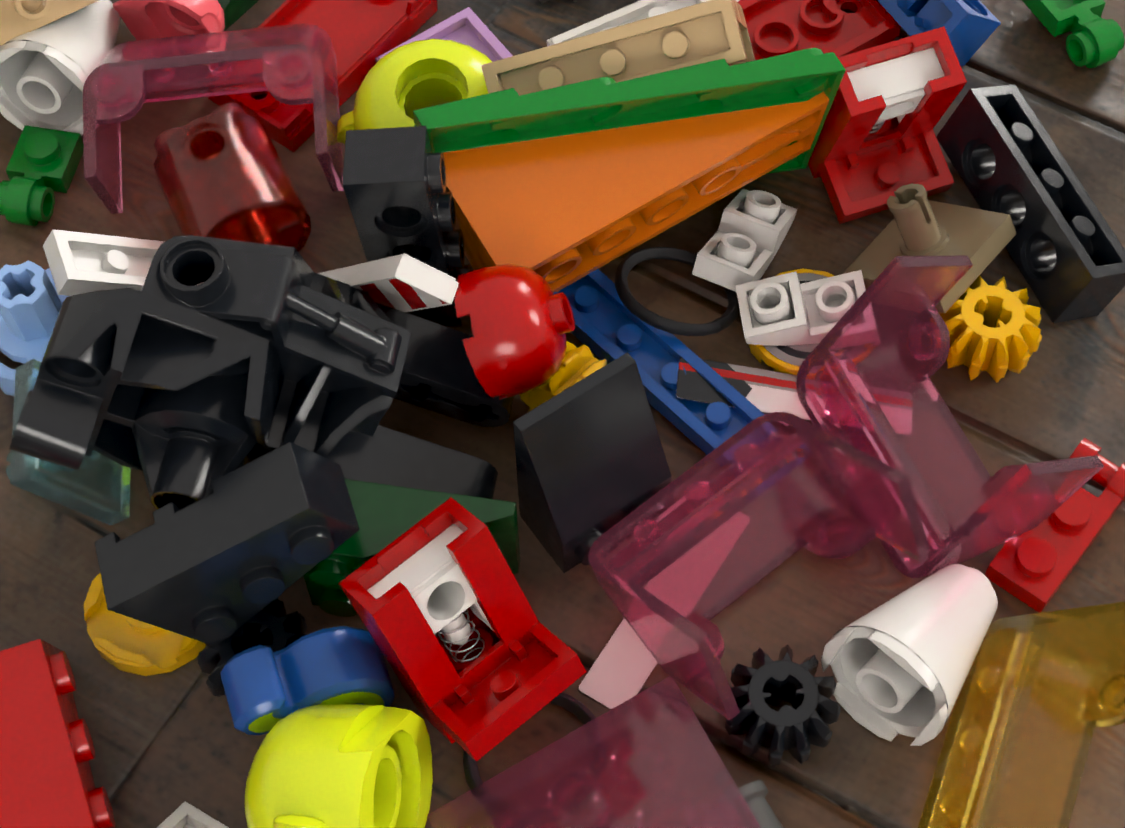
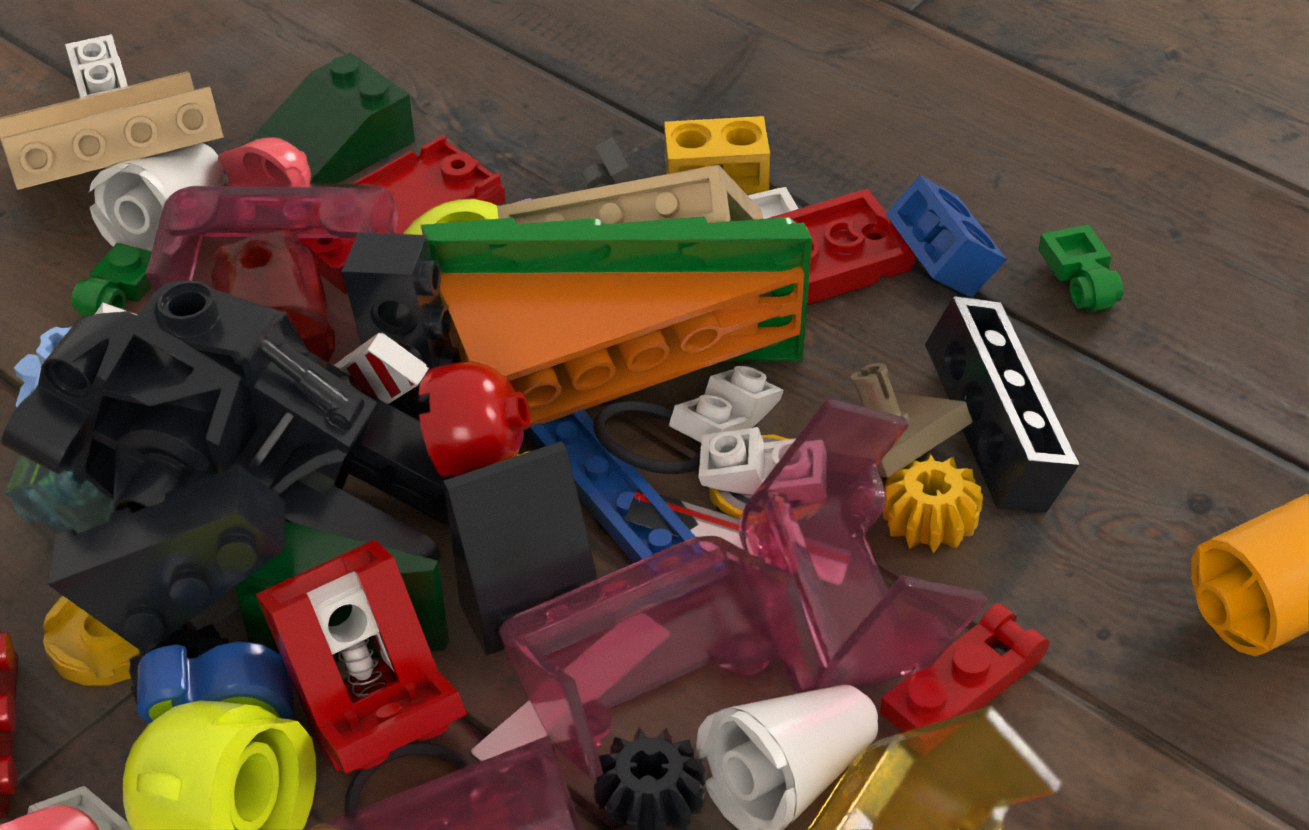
camera: 10 degrees right, 15 degrees down
(884, 123) = (868, 310): red brick -> none

